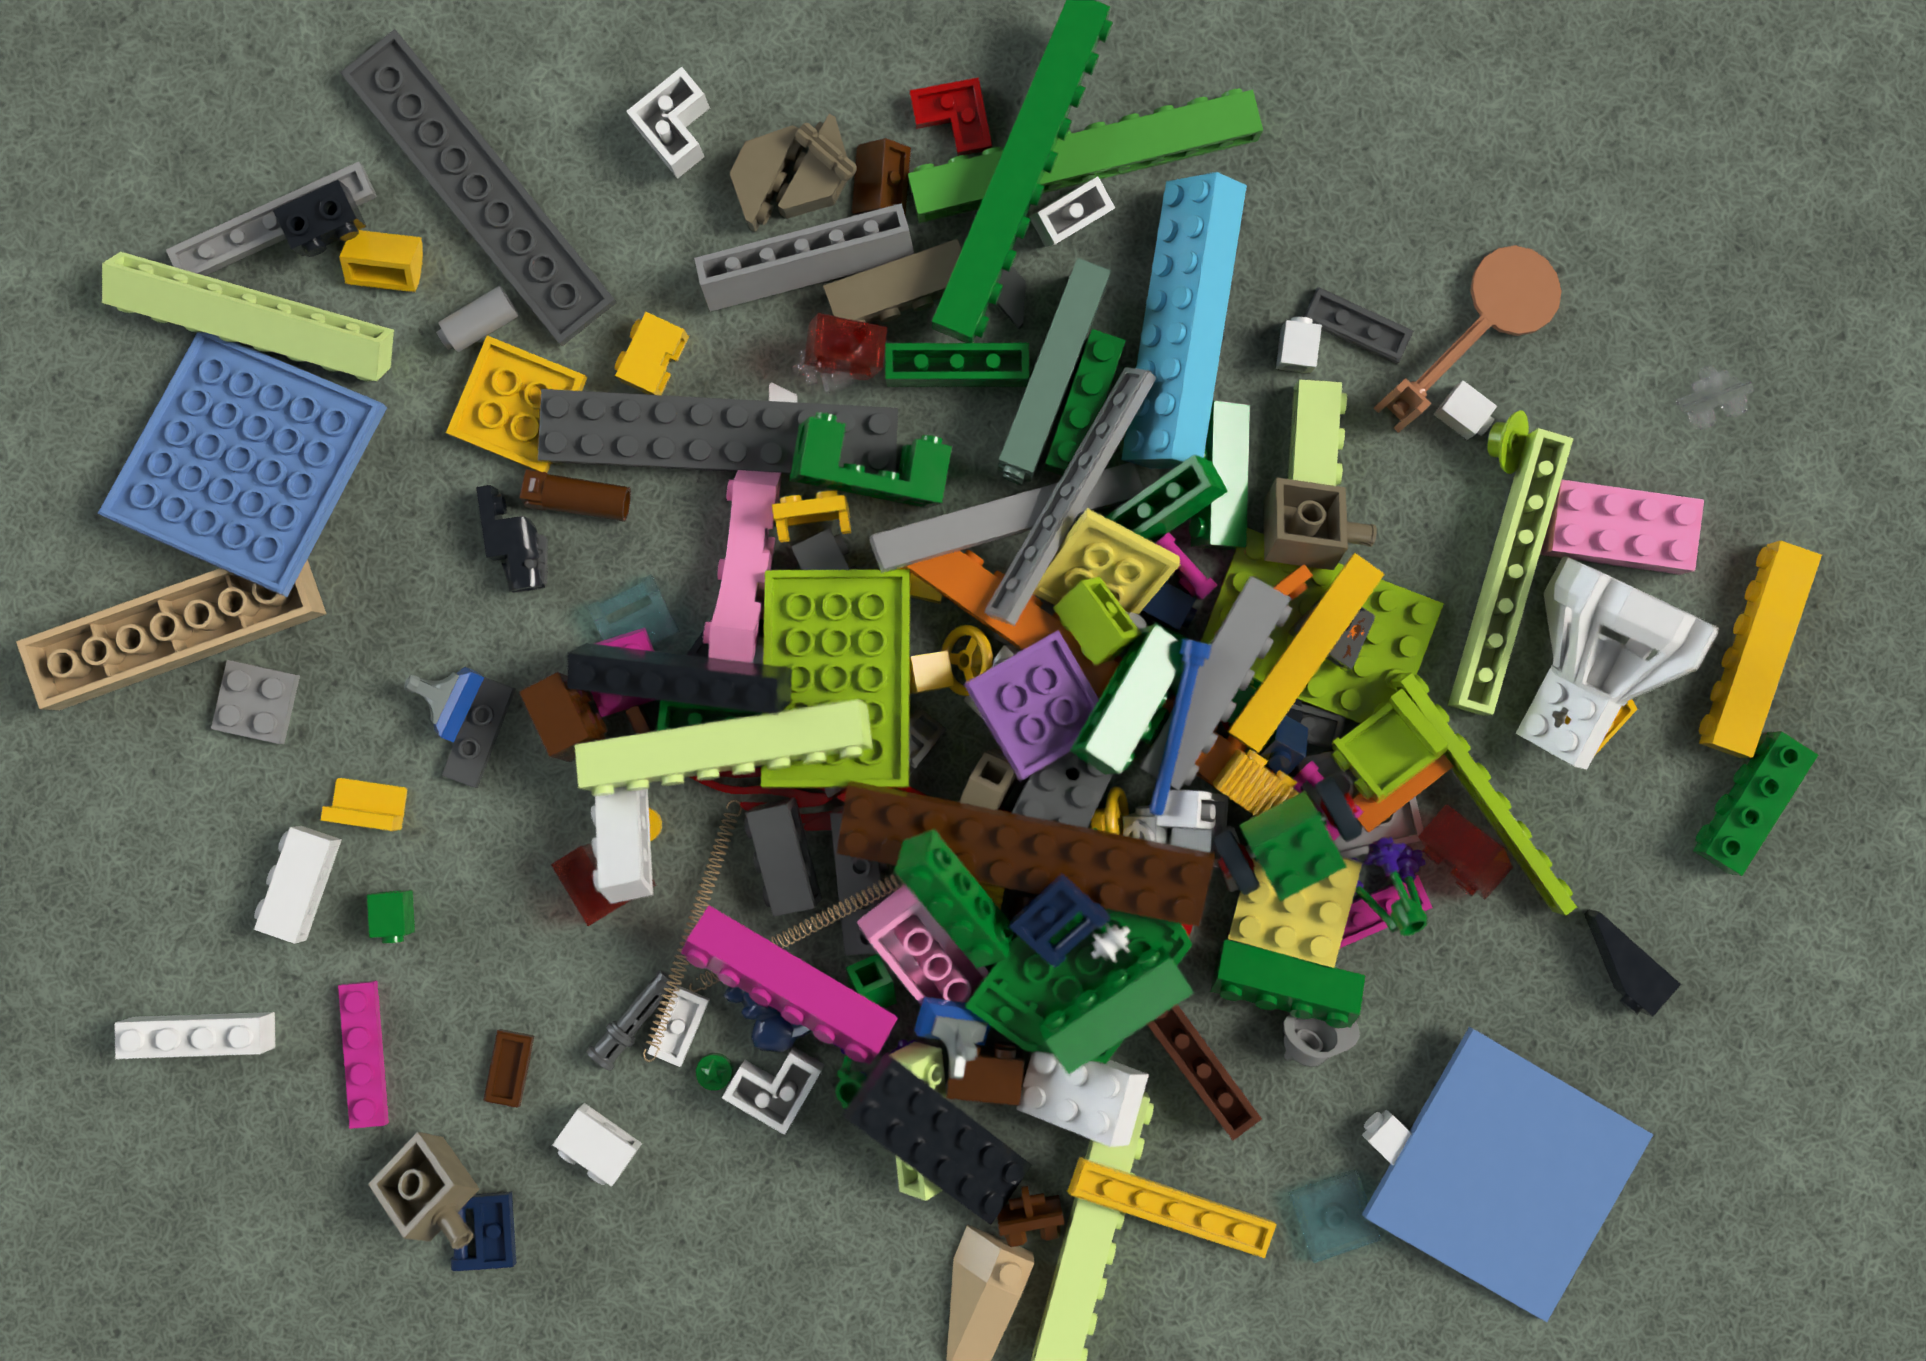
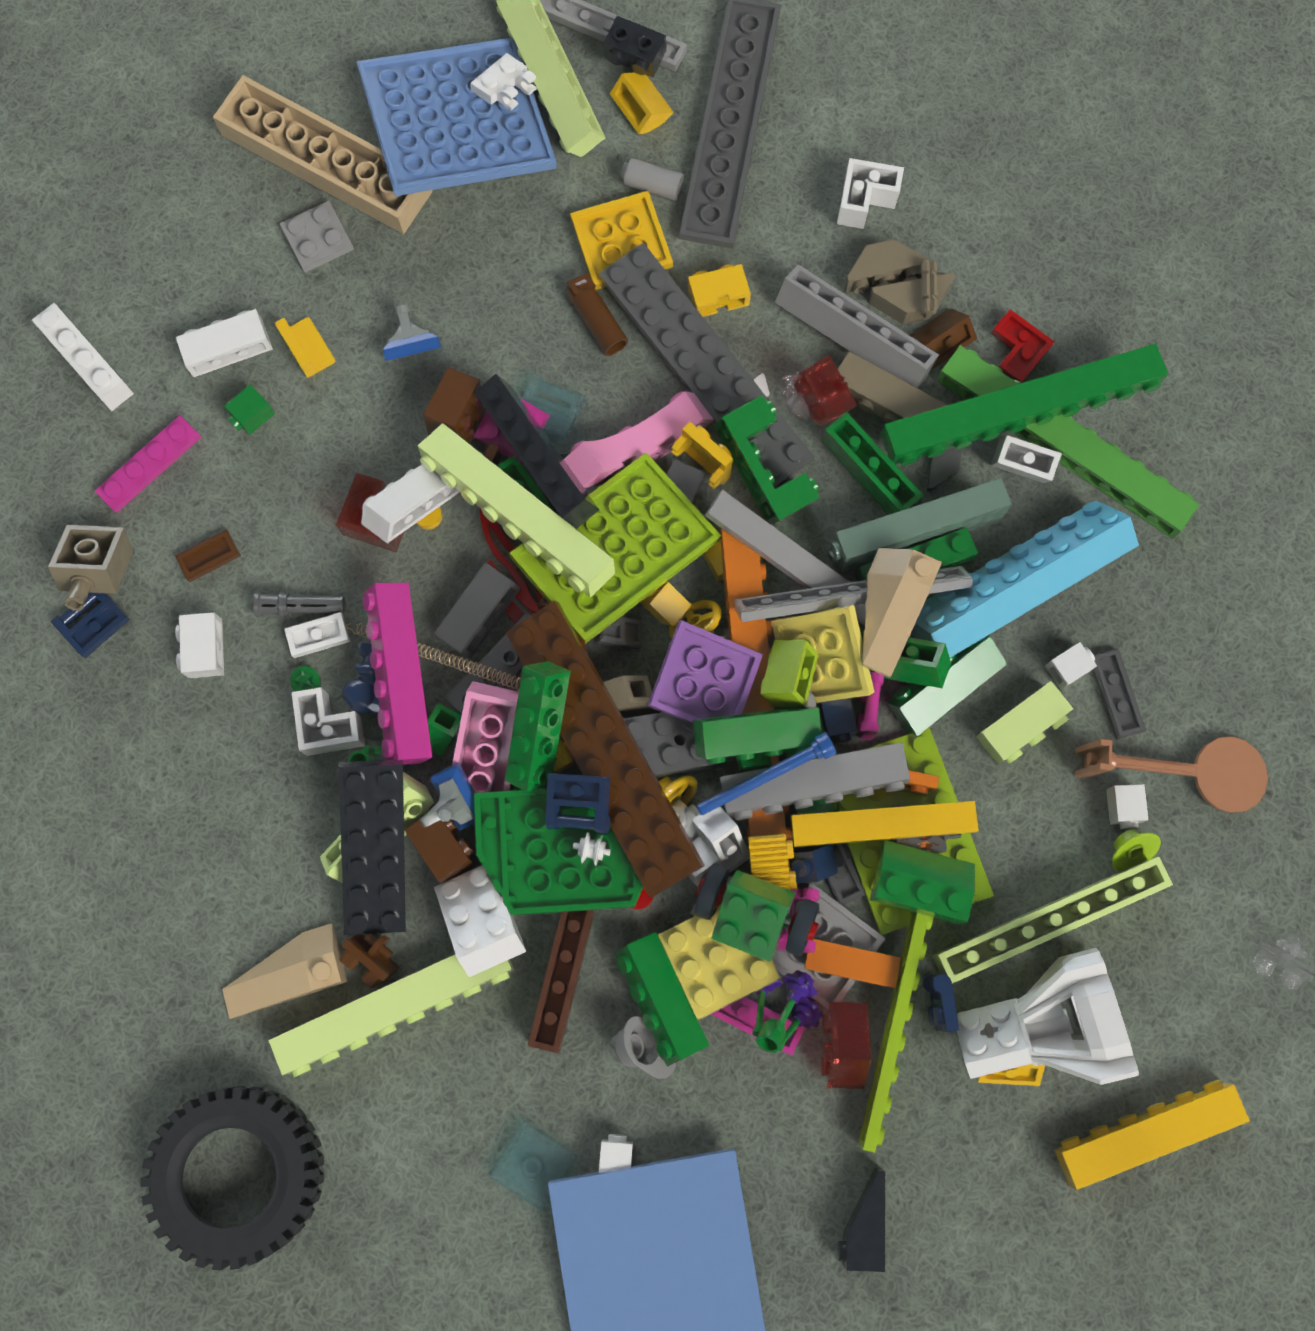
camera: 45 degrees right, 10 degrees down
(240, 383) = (499, 81): none -> white plate
(478, 733) = (404, 374): dark grey plate -> none
(514, 541) = (536, 301): black plate -> none
(686, 930) = (350, 608): tan piece -> none
(1111, 460) = (895, 595): none -> tan wedge
(1114, 1009) = (550, 886): green brick -> none
(1171, 1207) = (450, 1046): yellow tile -> none
(1310, 524) = (967, 763): dark tan brick -> none
(1389, 663) = (924, 883): none -> green slope
(1389, 748) = (870, 934): lime panel -> none
(1505, 739) = (943, 1007): none -> dark blue plate
(1624, 527) = (1147, 971): bright pink brick -> none
(1754, 802) = (1049, 1220): green brick -> none

